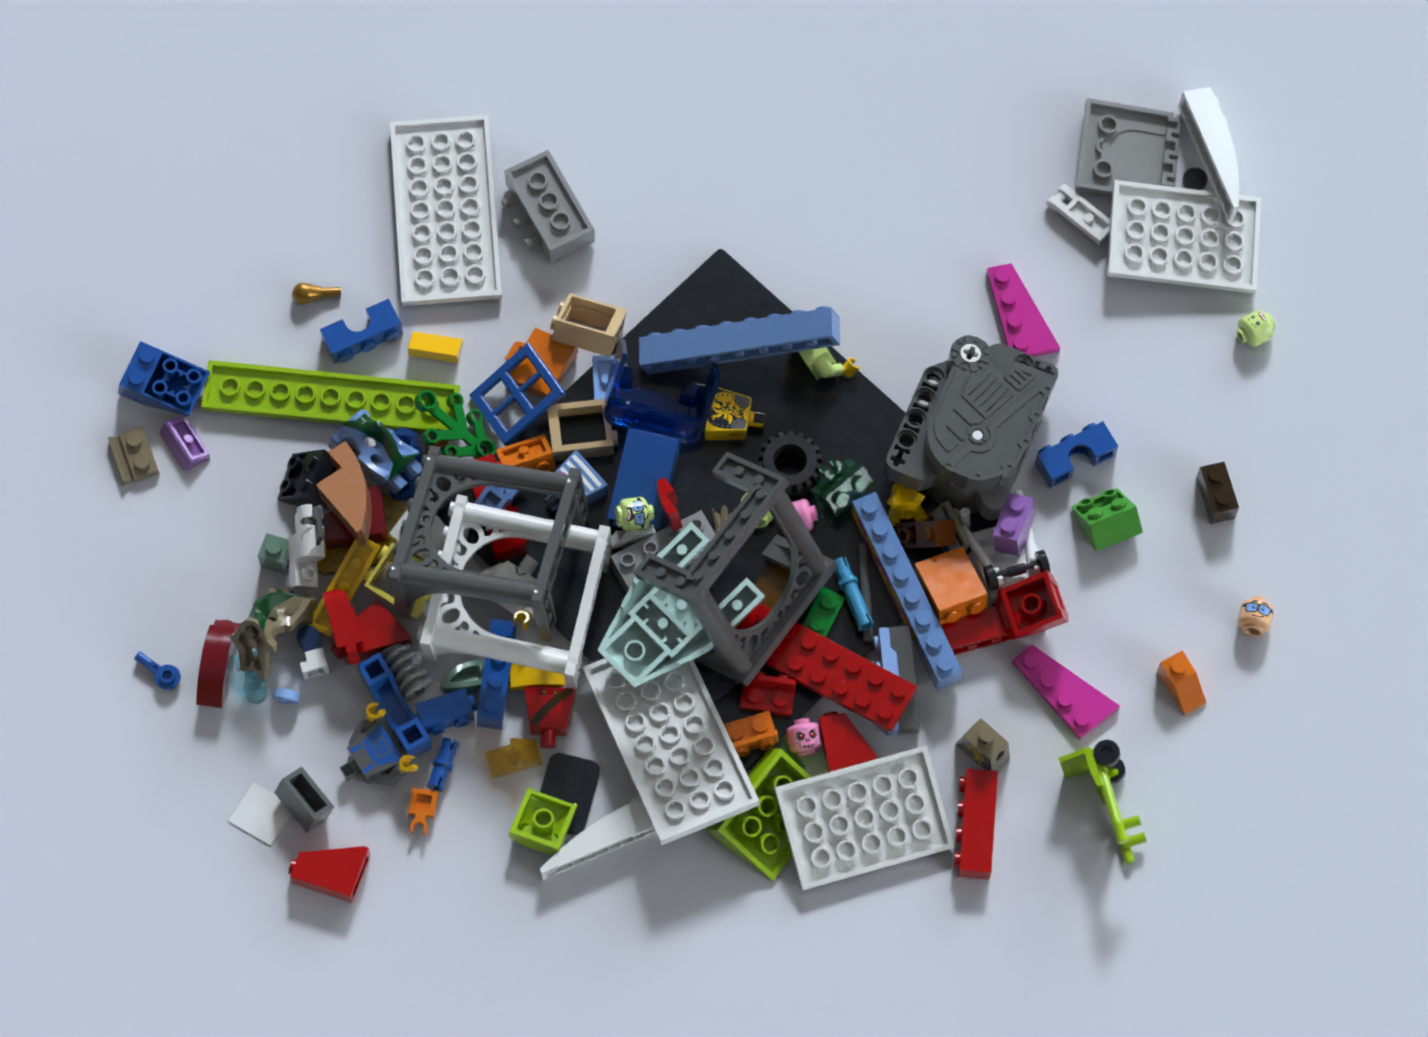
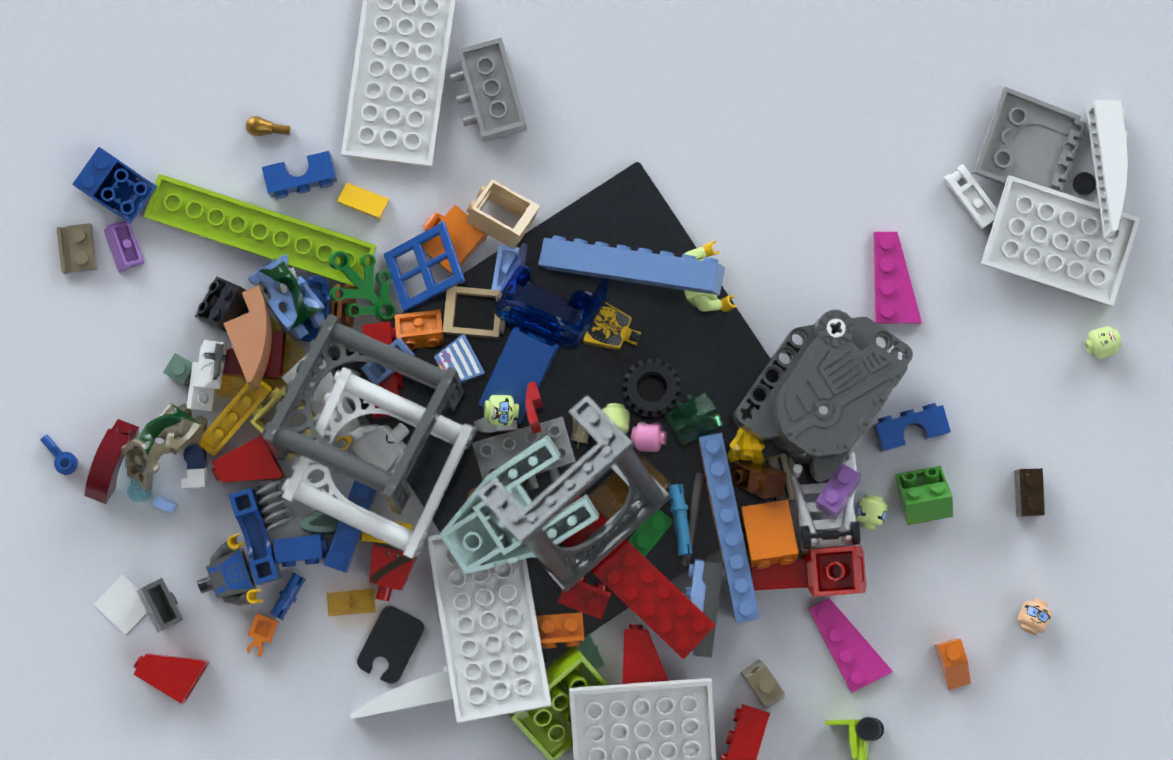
camera: 15 degrees right, 15 degrees up
(343, 623) = (223, 456): red piece -> none
(542, 822) = (362, 670): lime slope -> none
(804, 737) = (608, 642): bright pink head -> none
(1056, 546) = (871, 512): none -> yellowish green head

